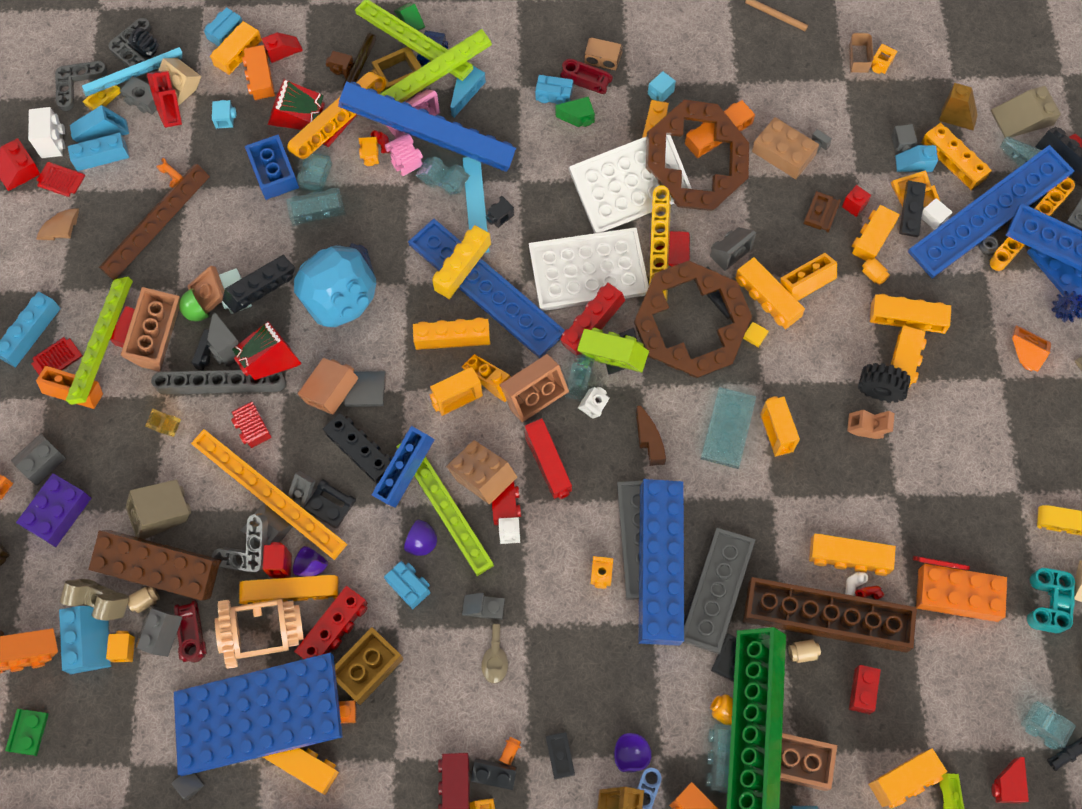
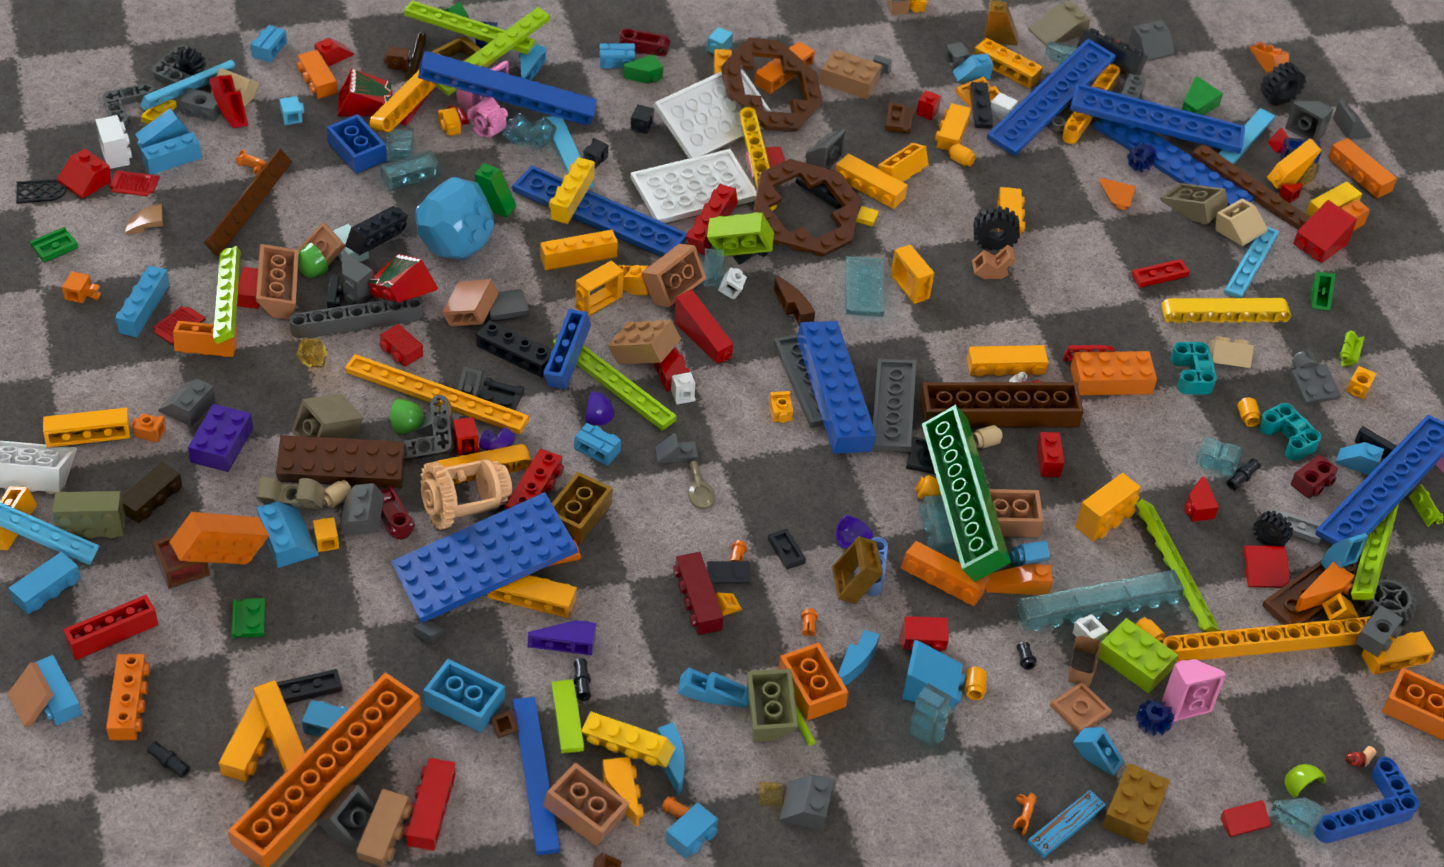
camera: 20 degrees left, 20 degrees down
(232, 48) = (285, 57): light orange brick -> none
(232, 513) = (405, 416): none -> bright green helmet
(385, 250) = (495, 190): none -> green slope
(557, 175) = (642, 119): none -> black brick
(605, 49) = (660, 18): medium nougat piece -> none
(910, 313) = (1018, 177): light orange brick -> none
(1048, 464) = (1160, 273): none -> red plate

